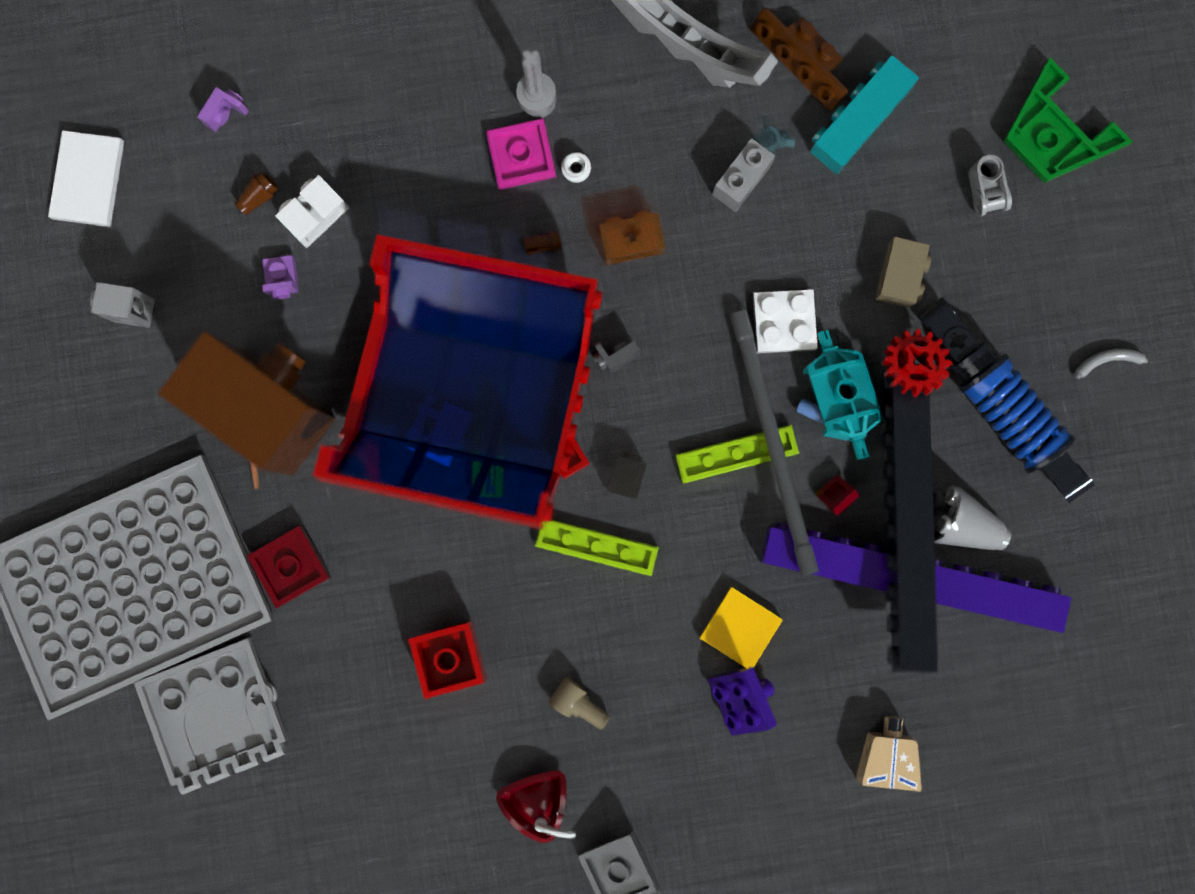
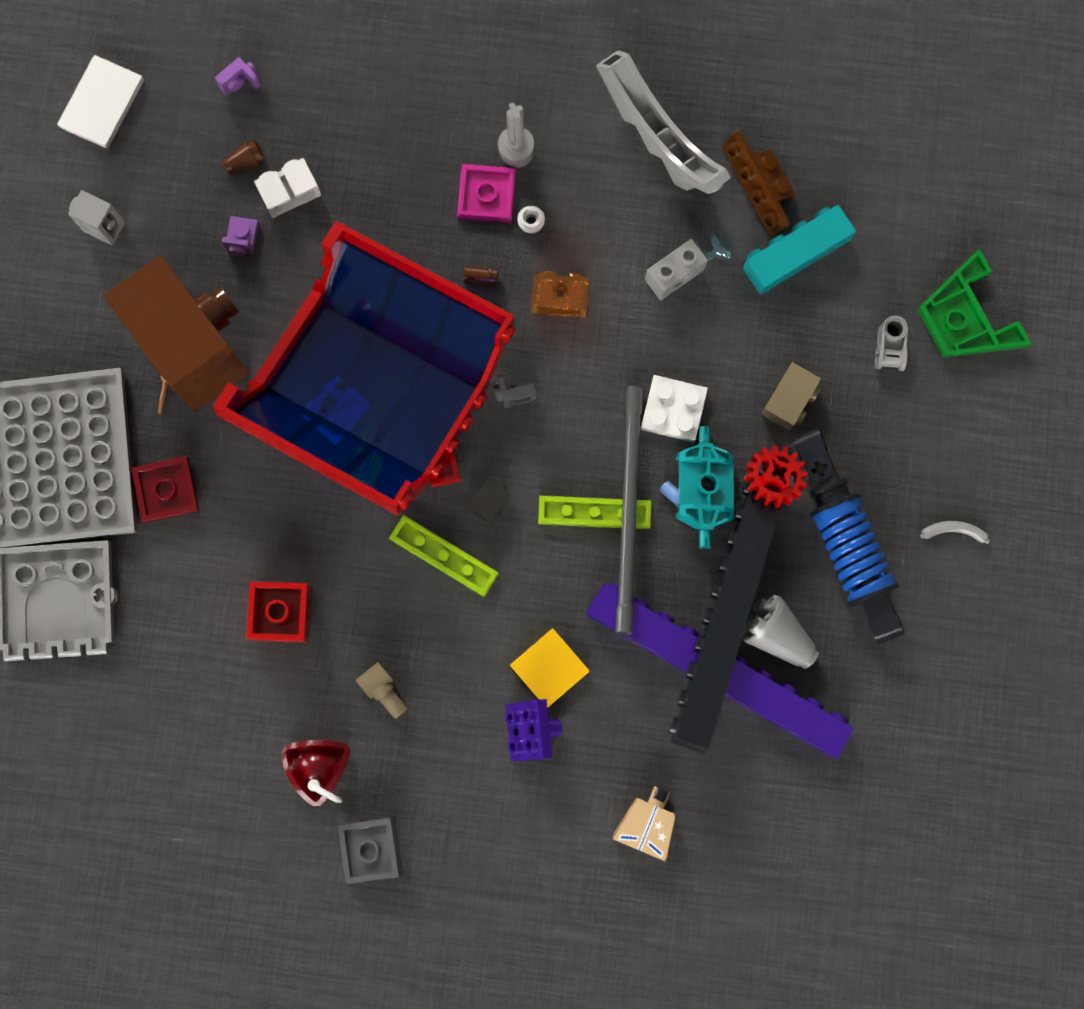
camera: 10 degrees right, 5 degrees down
(837, 495) = (672, 574): dark red plate -> none

